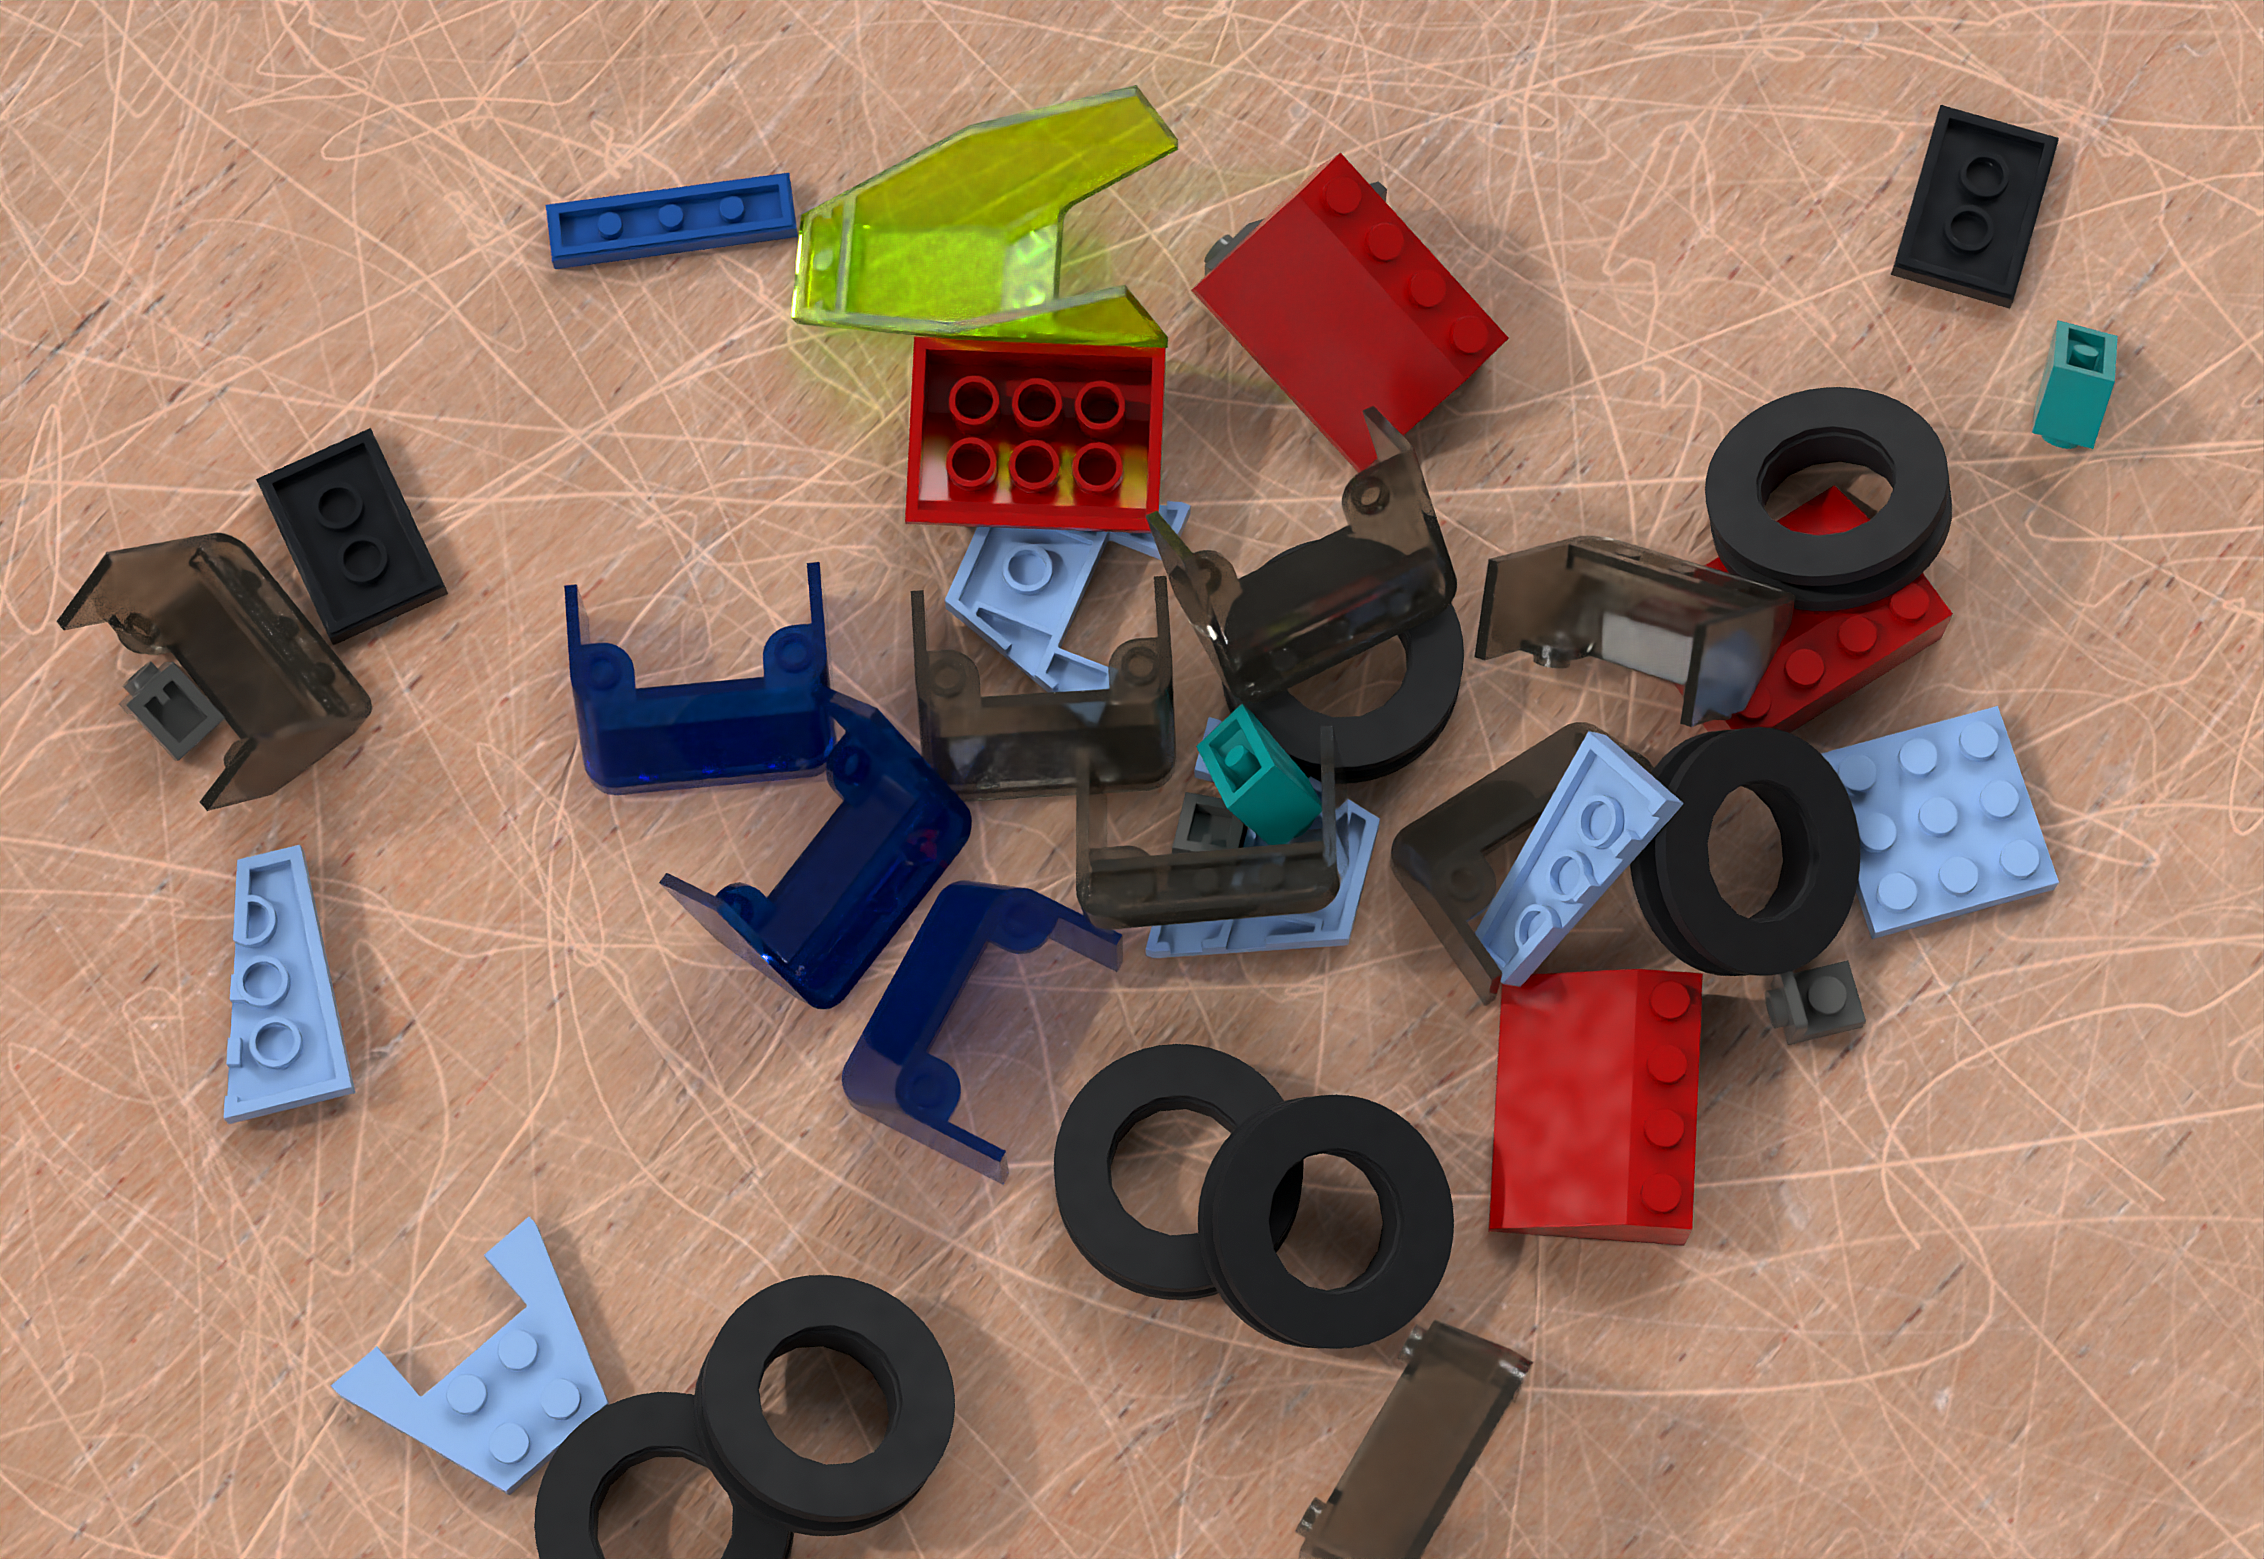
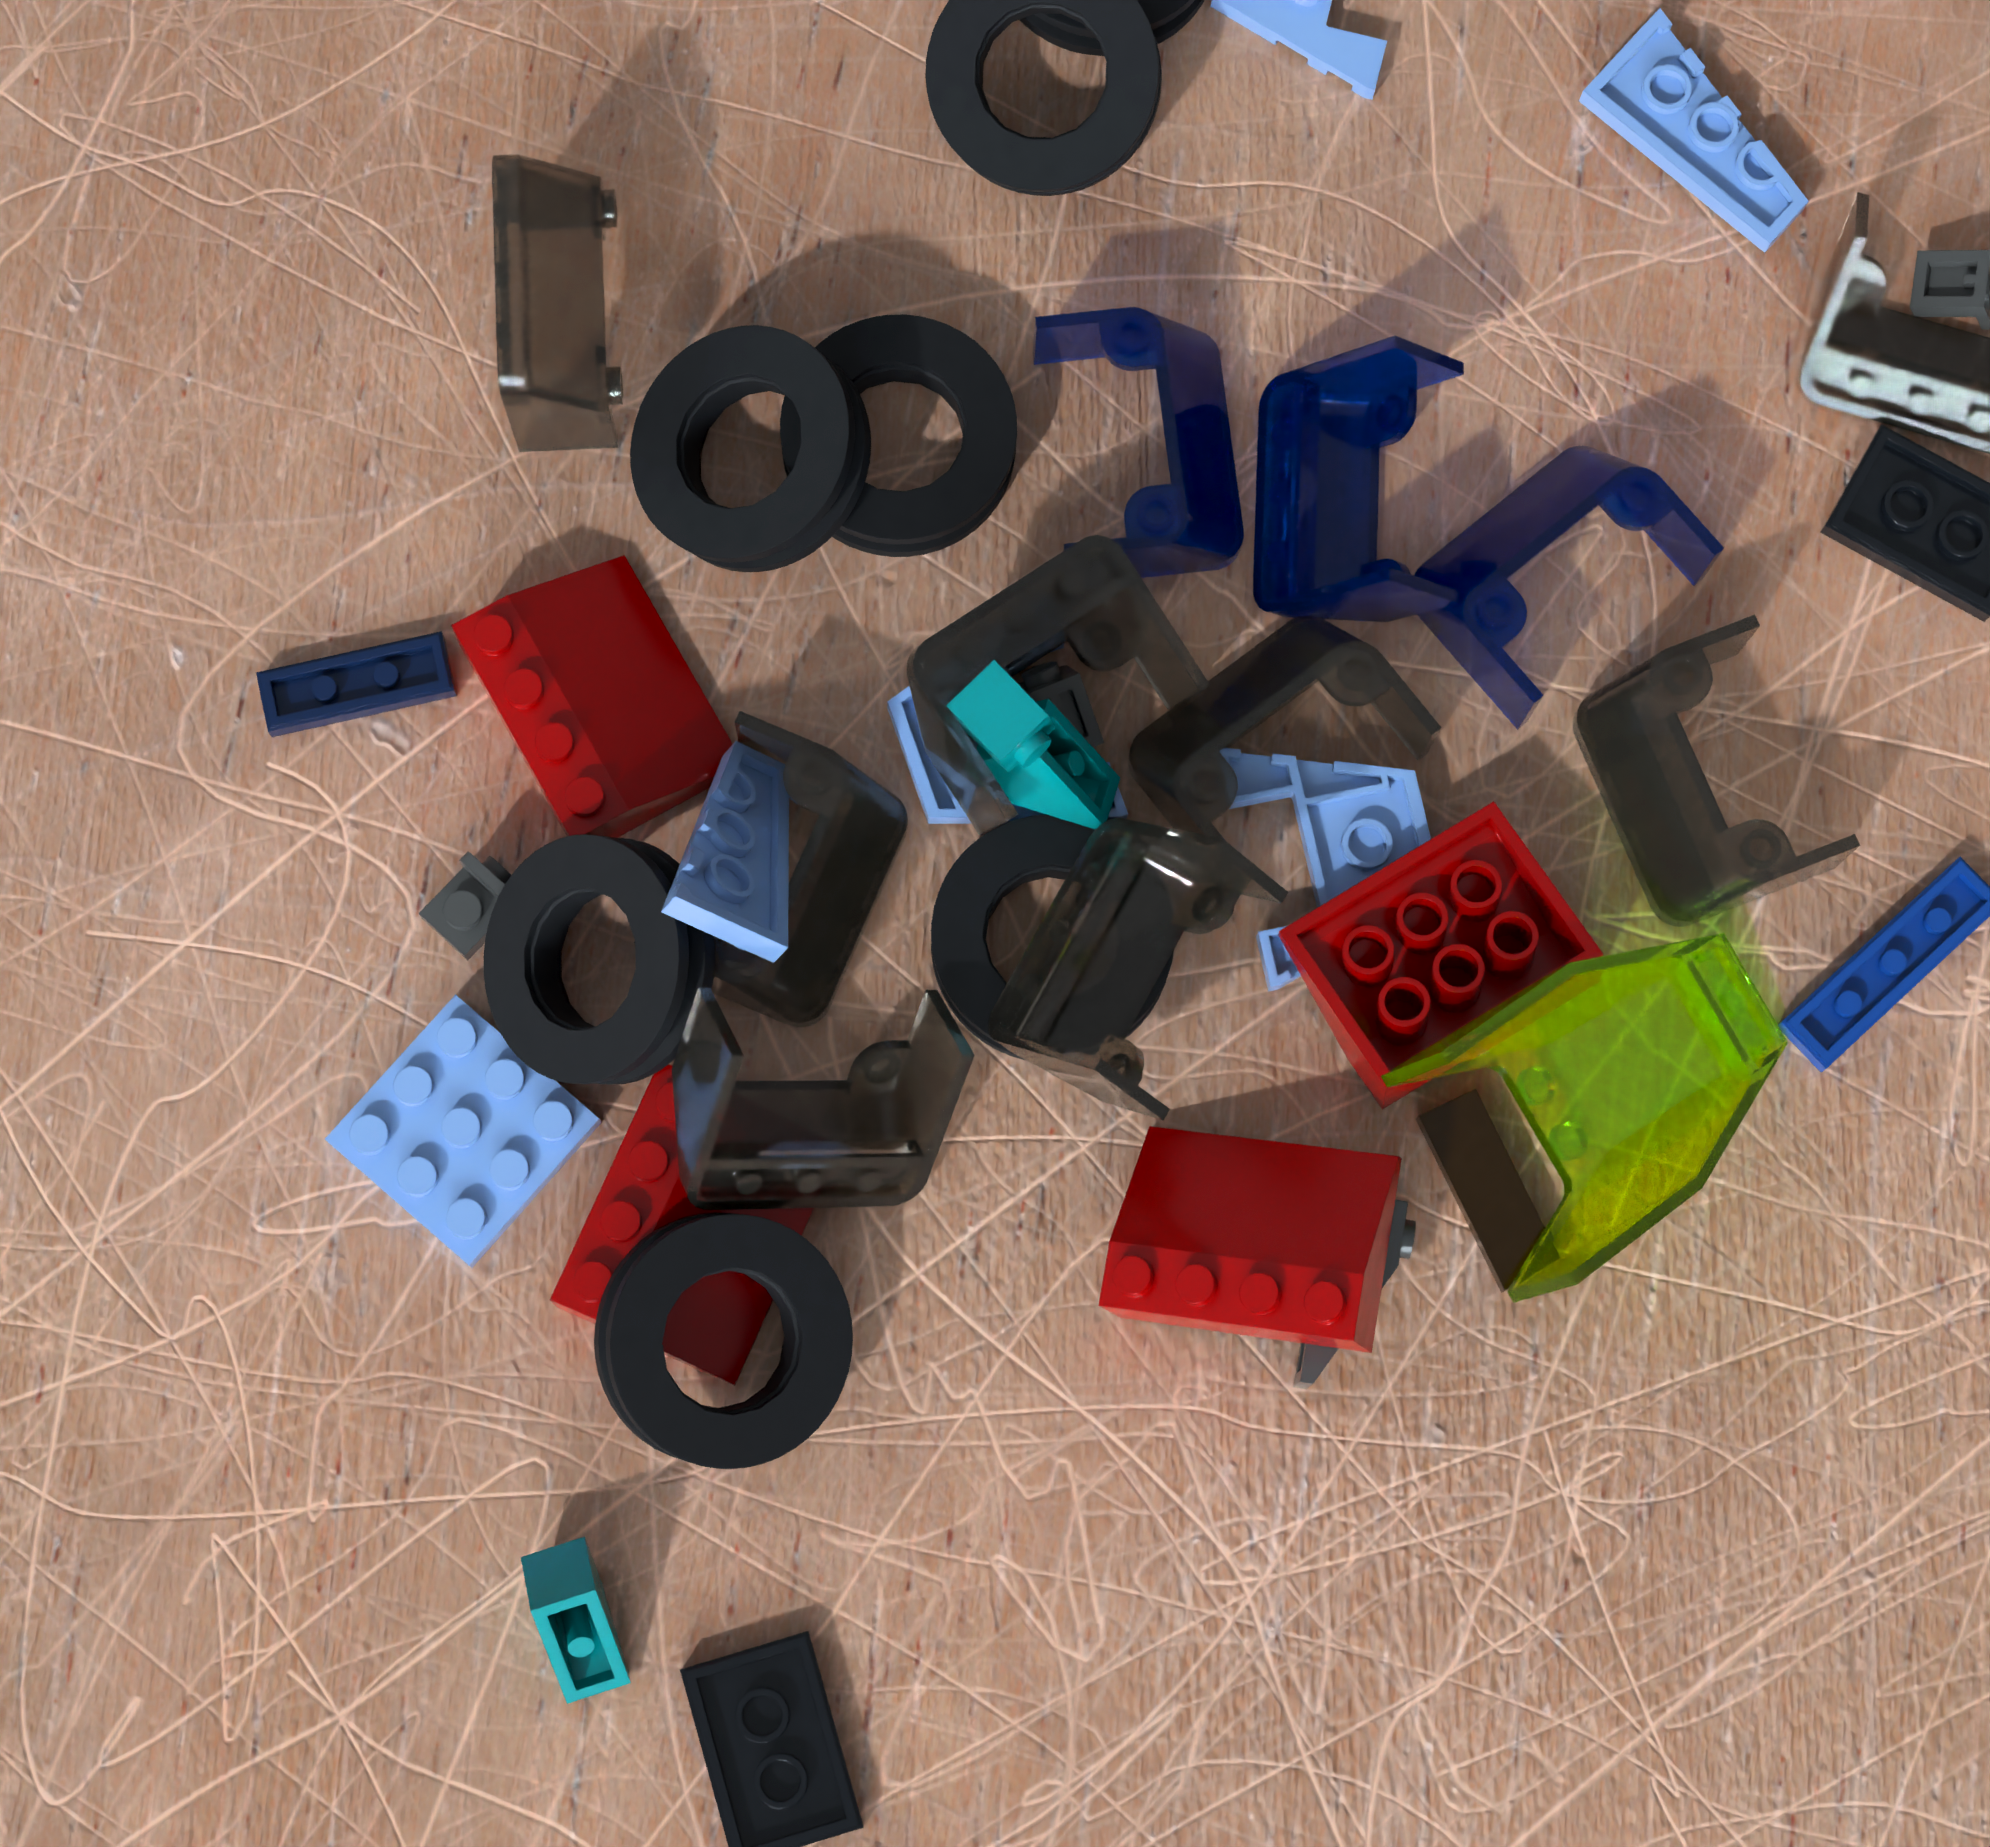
camera: 140 degrees right, 5 degrees up
(746, 510) = (1661, 797): none -> clear smoke windscreen
(1130, 233) = (1483, 1183): none -> dark brown tile
(1285, 792) = (1002, 718): none -> teal slope
(1798, 1264) = (356, 684): none -> dark blue tile

